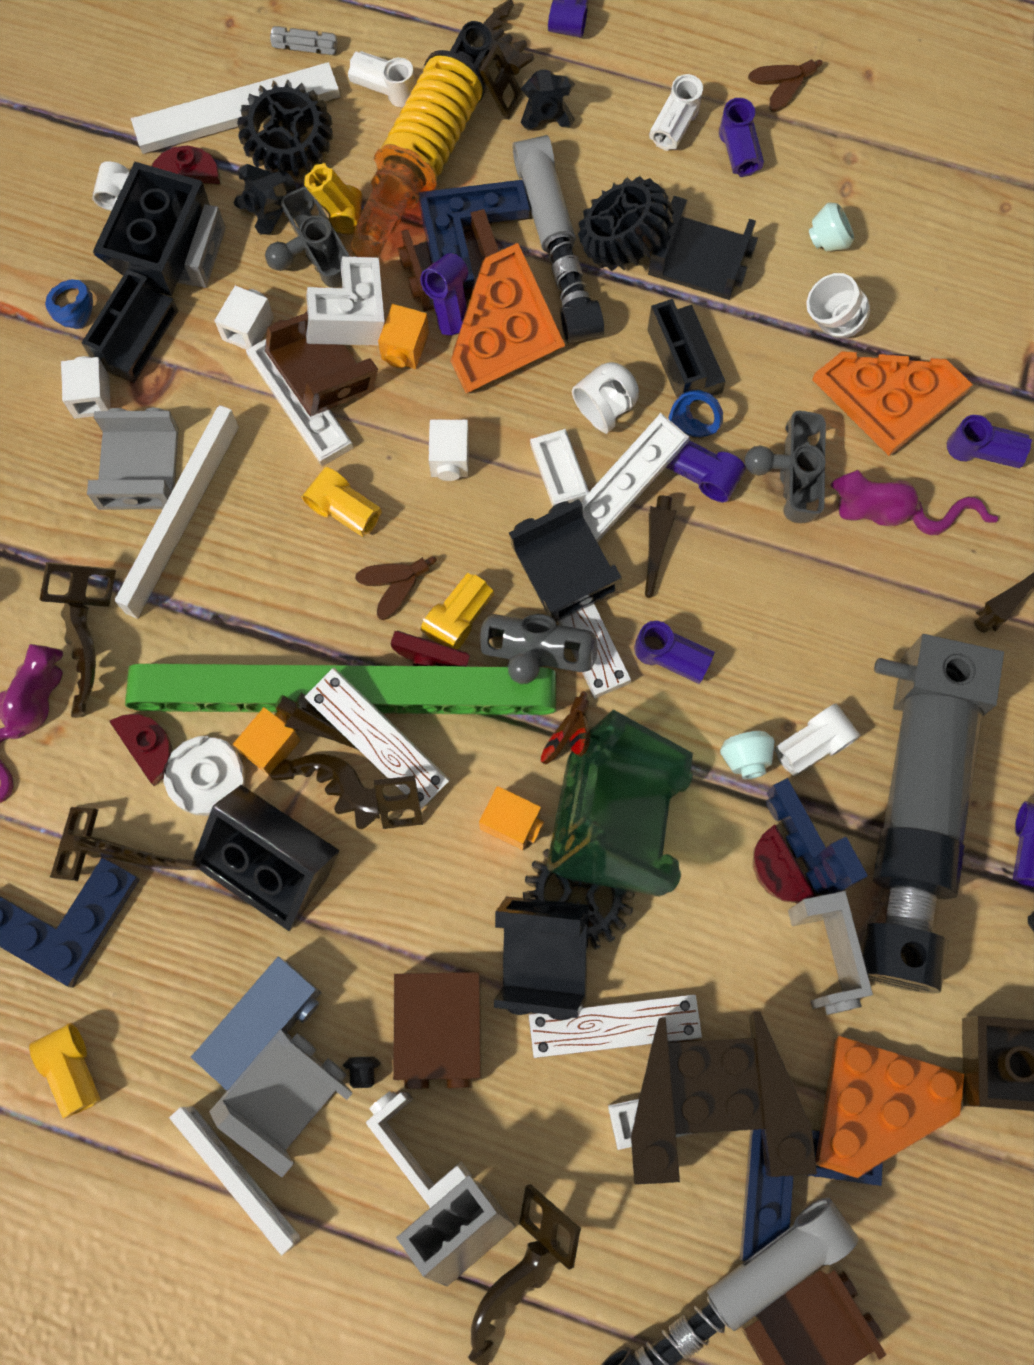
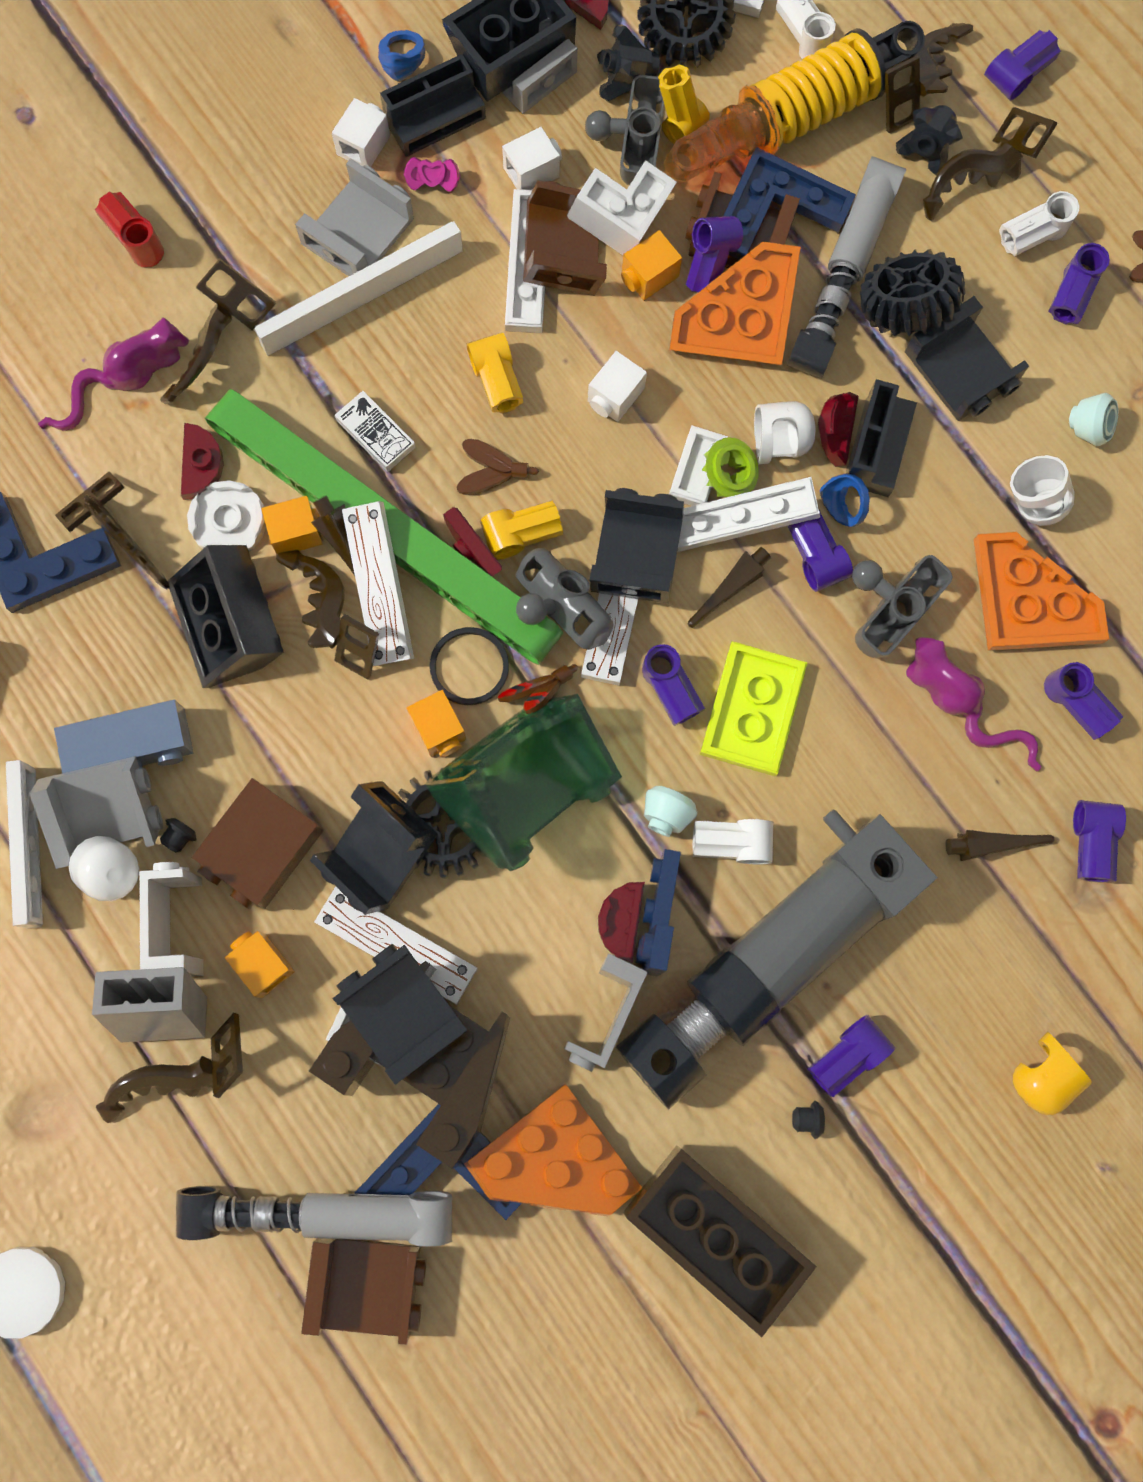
camera: 30 degrees right, 5 degrees up
(161, 383) = (432, 173): none -> dark pink piece
(276, 618) = (375, 431): none -> white tile
(325, 1145) = (104, 868): none -> white helmet
(497, 718) = (476, 631): none -> black piece
(514, 1127) = (258, 963): none -> light orange brick
(584, 438) = (737, 455): none -> lime gear
(607, 90) = (992, 164): none -> dark brown piece
(644, 364) = (837, 426): none -> dark red plate
(676, 1077) = (398, 1012): none -> black panel
(749, 626) = (753, 708): none -> neon yellow tile

